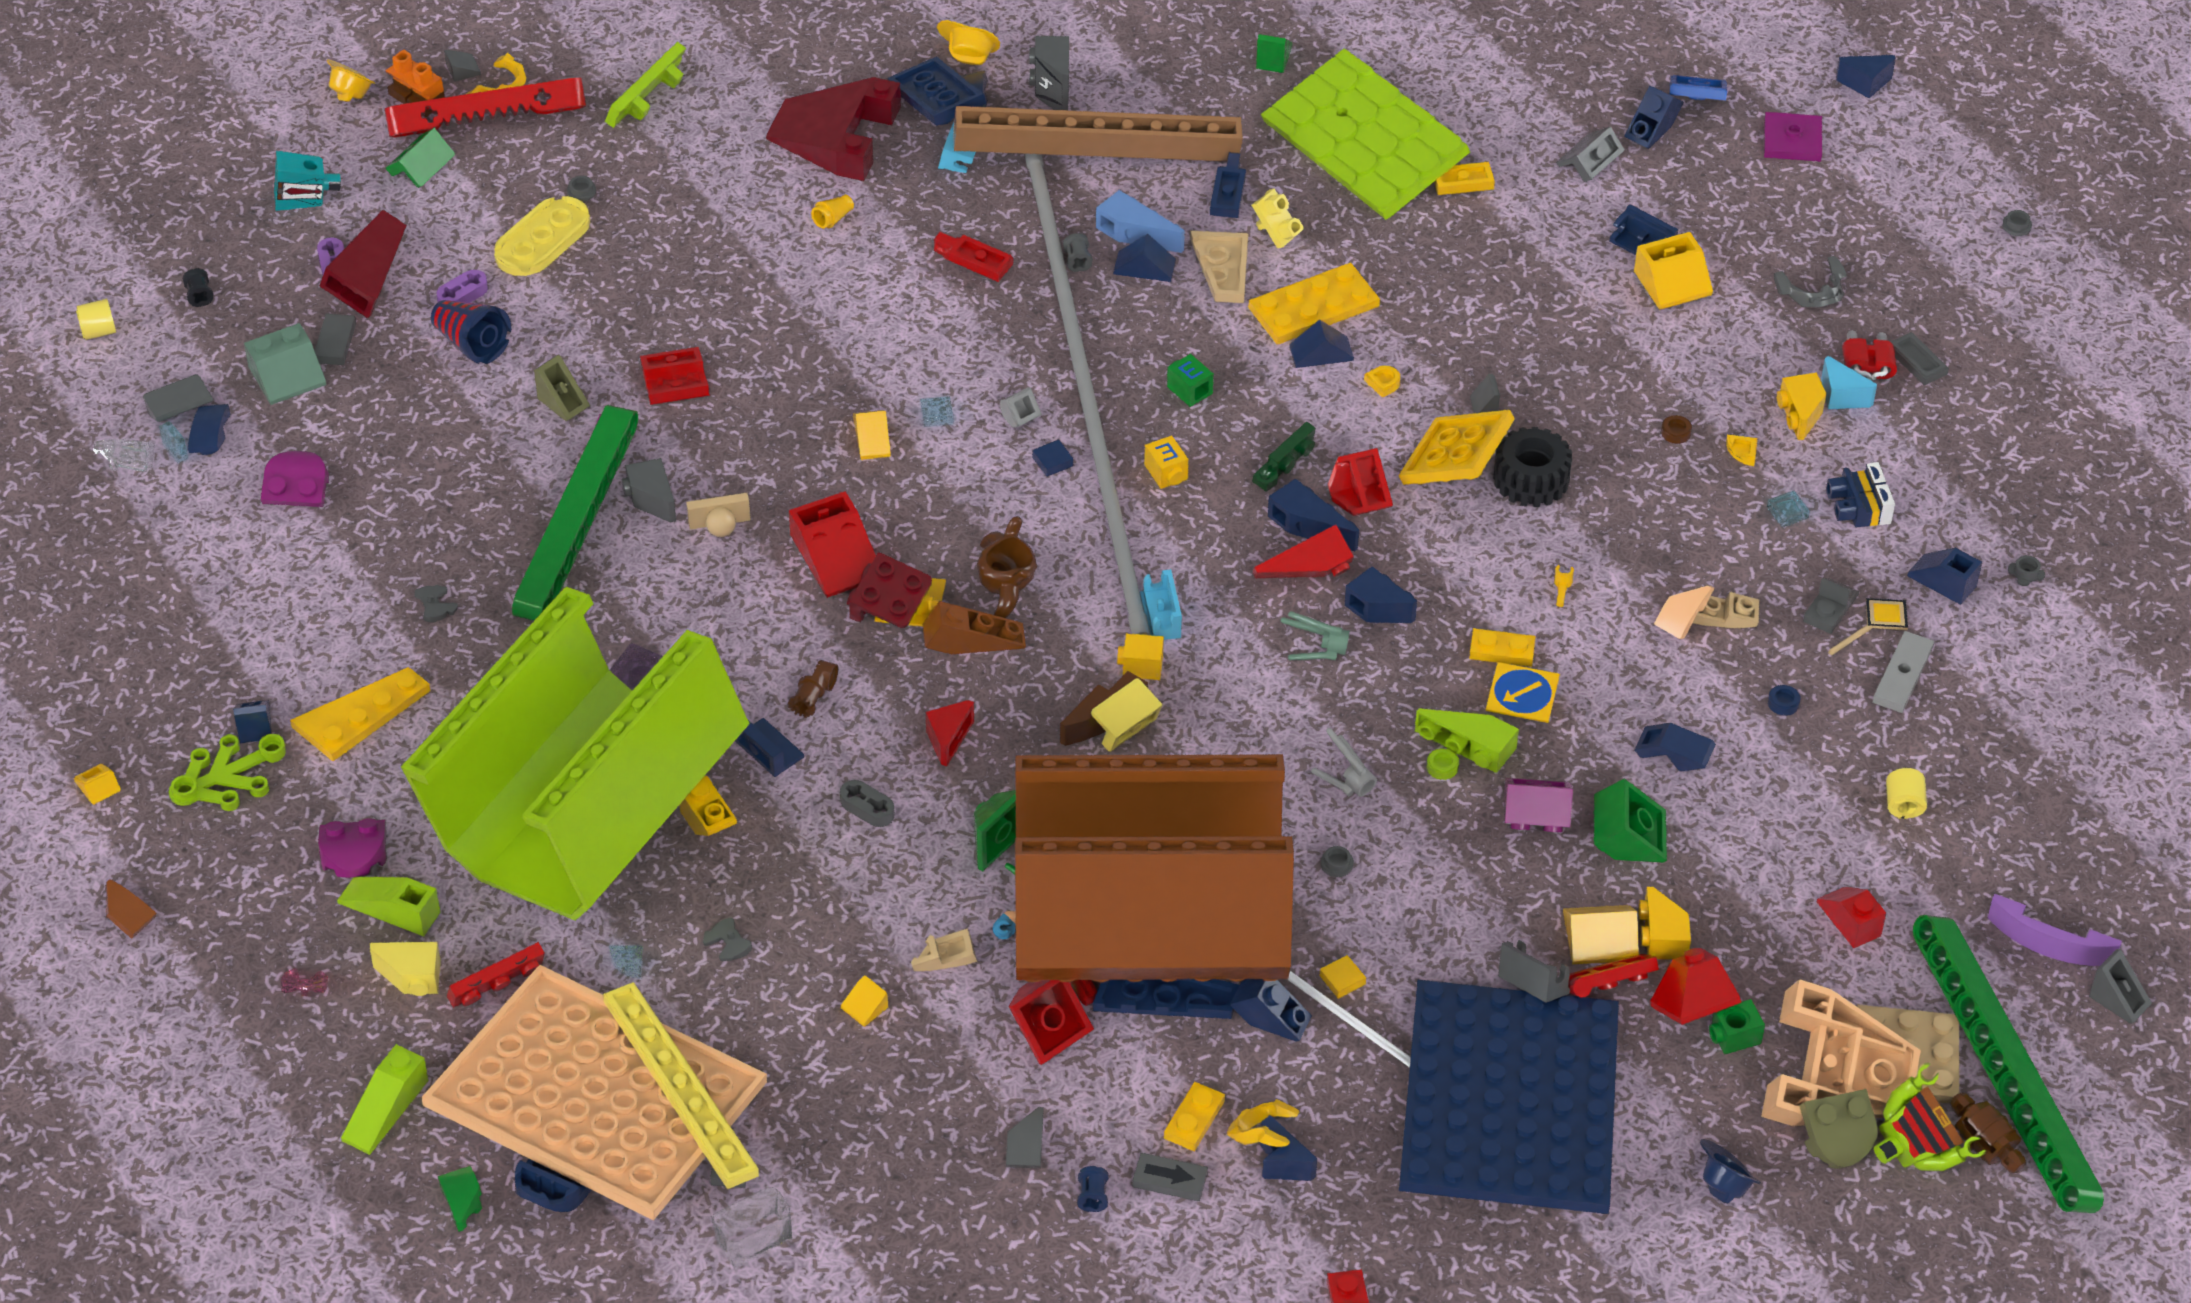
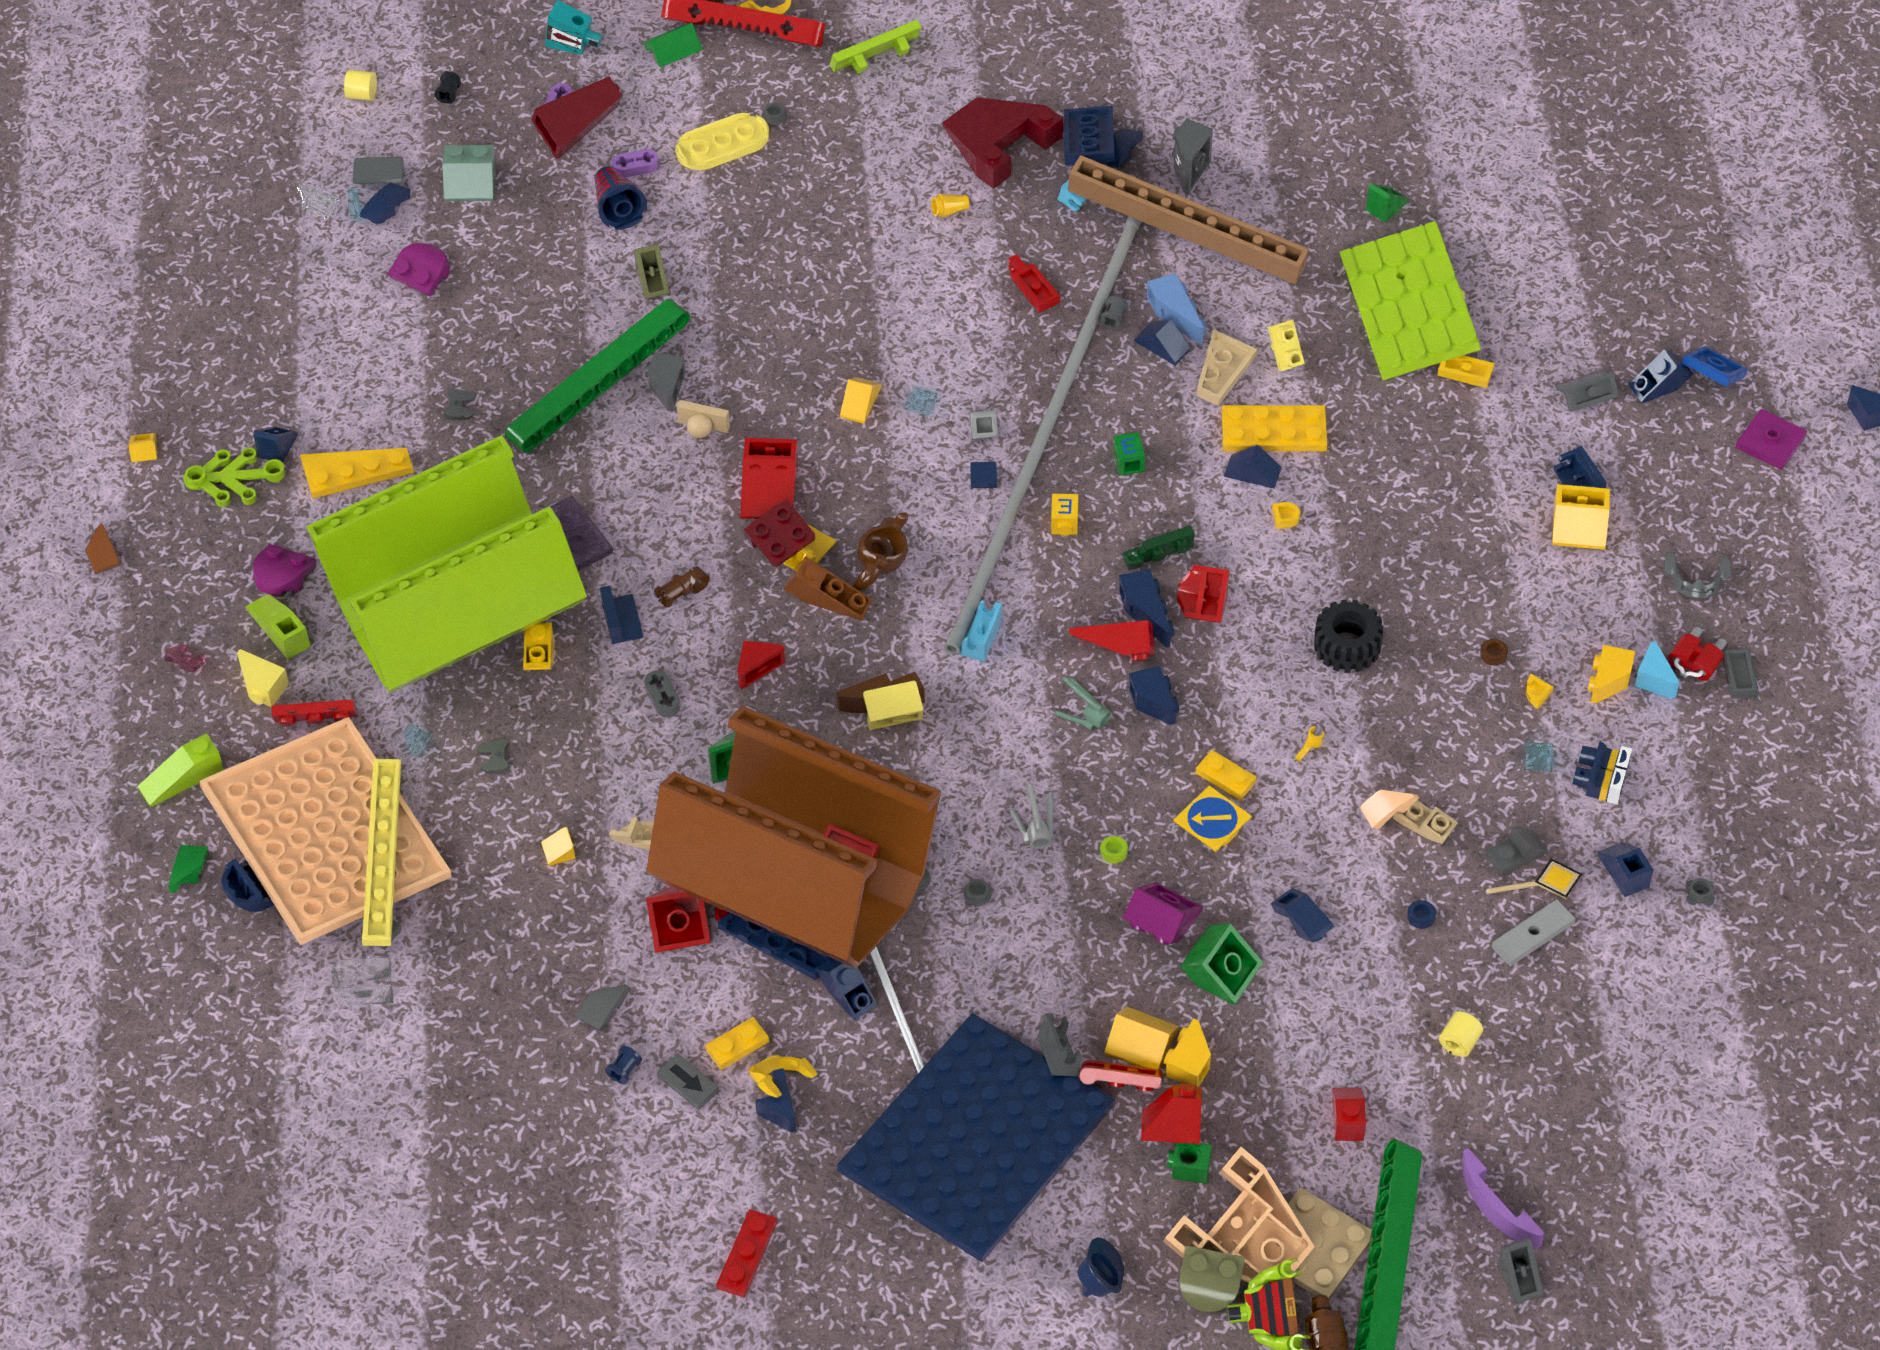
camera: 30 degrees right, 5 degrees up
(335, 338) = (520, 166): dark grey tile -> none
(674, 375) = (745, 293): red slope -> none
(968, 43) = (1143, 106): yellow piece -> none
(1142, 655) = (939, 664): yellow brick -> none
(1228, 188) = (1270, 304): dark blue hinge -> none
(1342, 976) = (920, 985): yellow tile -> none
(1456, 447) = (1295, 595): yellow plate -> none
(1472, 735) = (1151, 838): lime slope -> none
(1486, 395) = (1355, 563): dark grey slope -> none

